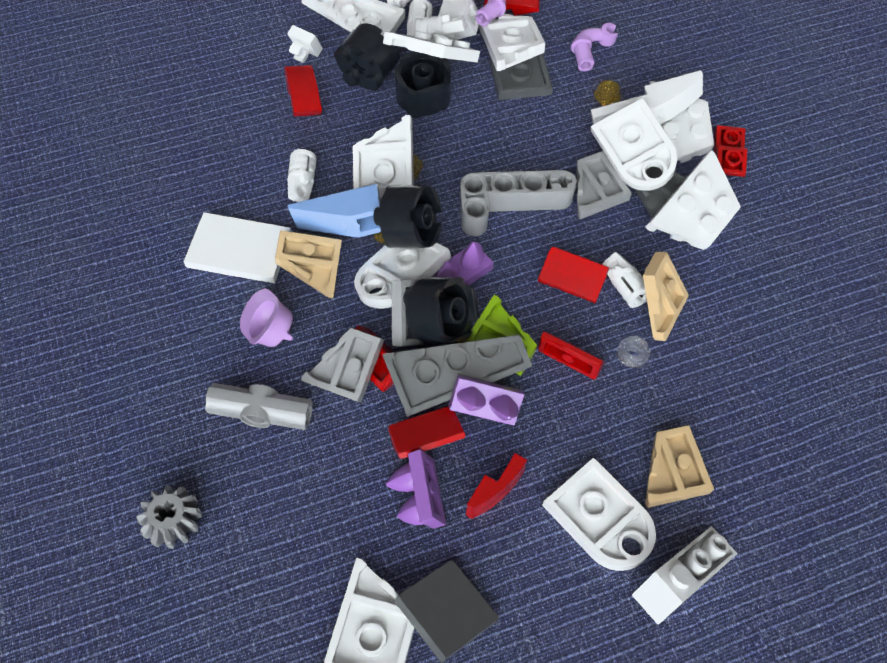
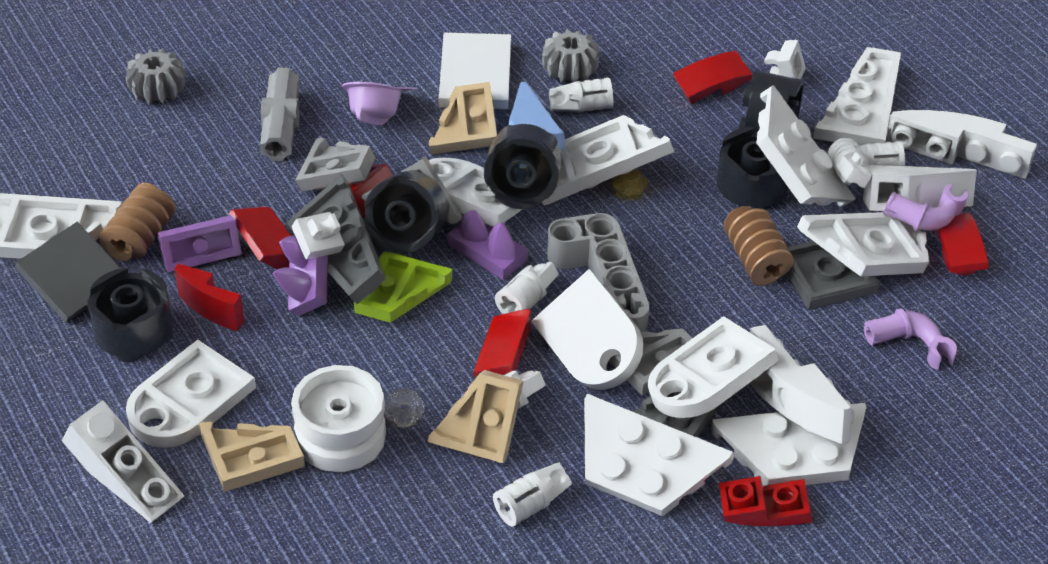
camera: 80 degrees right, 15 degrees down
(250, 174) = (570, 56): none -> light grey gear
(388, 543) = (137, 222): none -> medium nougat piece
(471, 374) = (318, 235): none -> white tile
(501, 99) = (758, 244): none -> medium nougat piece
(518, 250) = (526, 288): none -> white hinge
(522, 533) = (130, 313): none -> black brick
(570, 355) = (392, 348): red slope -> none
(578, 214) = (588, 329): none -> white tile
(607, 92) = (825, 356): clear yellow plate -> none
(658, 391) = (339, 418): none -> white wheel
(725, 279) = (540, 489): none -> white hinge

